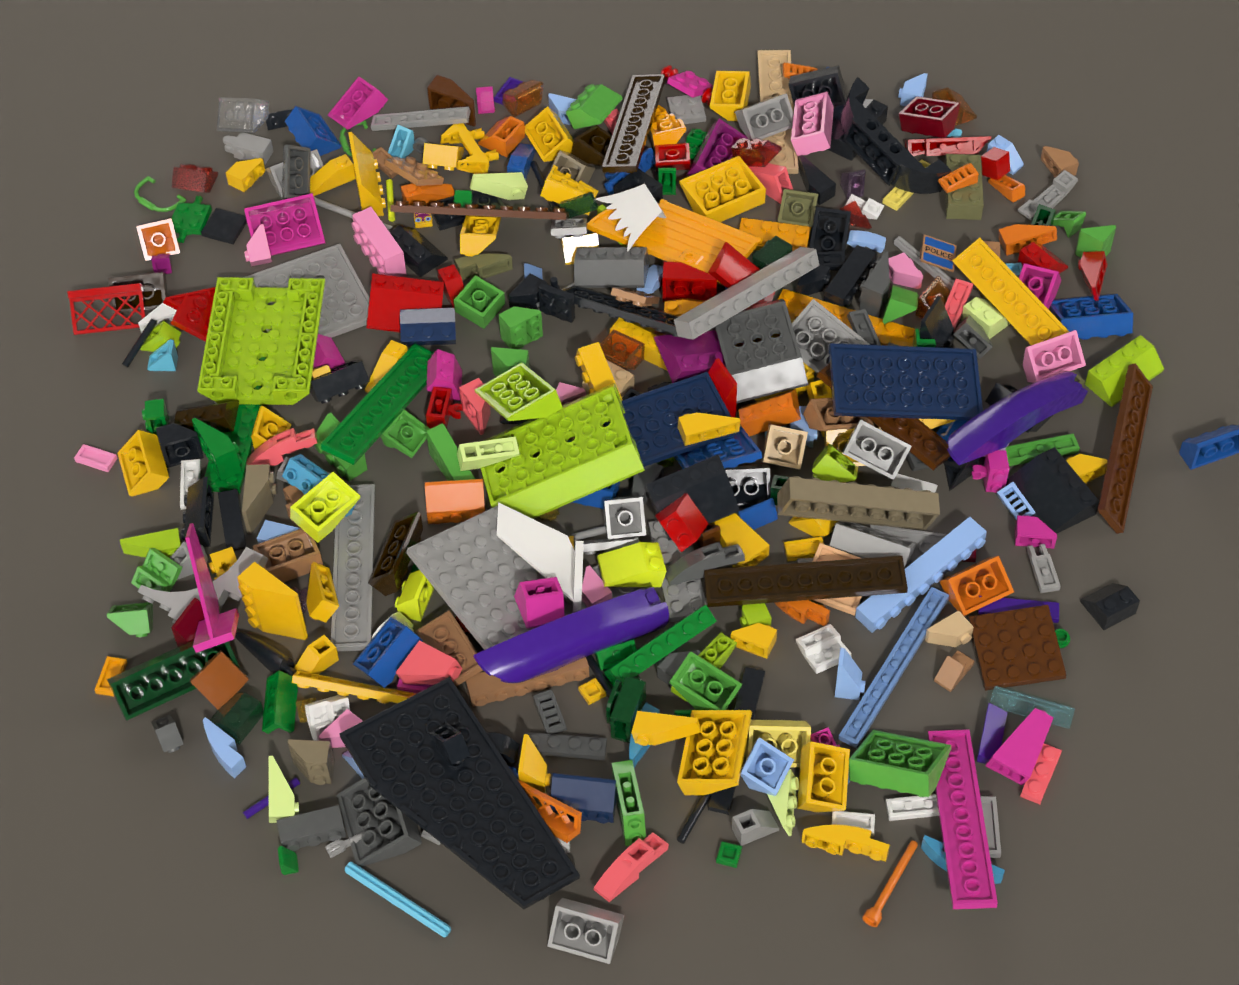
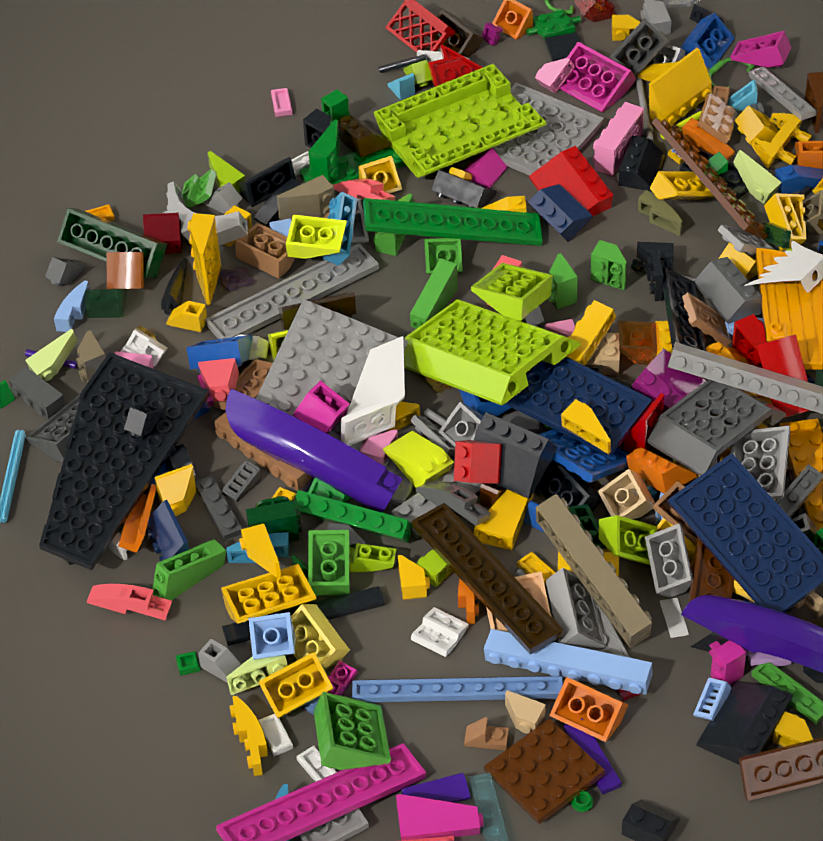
camera: 60 degrees right, 5 degrees down
(133, 618) = (148, 197): bright green slope -> none
(143, 463) = (290, 130): yellow slope -> none
(216, 627) = (173, 215): dark pink piece -> none
(280, 703) = (145, 315): green panel -> none
(321, 593) = (250, 285): yellow slope -> none
(340, 846) = (36, 419): light grey piece -> none
(347, 687) = (173, 345): yellow plate -> none
(442, 407) = (481, 261): red brick -> none
(444, 372) = (520, 245): dark pink slope -> none
(452, 282) = (621, 206): red slope -> none
(454, 500) = (394, 313): slope -> none
(479, 302) = (616, 227): bright green brick -> none
(484, 453) = (446, 303): yellowish green slope -> none
(533, 270) = (682, 248): medium blue slope -> none
(585, 930) = (54, 601): light grey slope -> none
(693, 818) = (205, 623): black bar -> none
(849, 678) = (409, 652): light blue slope -> none
(873, 915) = (191, 788): orange piece -> none
(1033, 532) = (684, 725): dark pink slope -> none
(1043, 569) = (651, 754): light grey hinge -> none

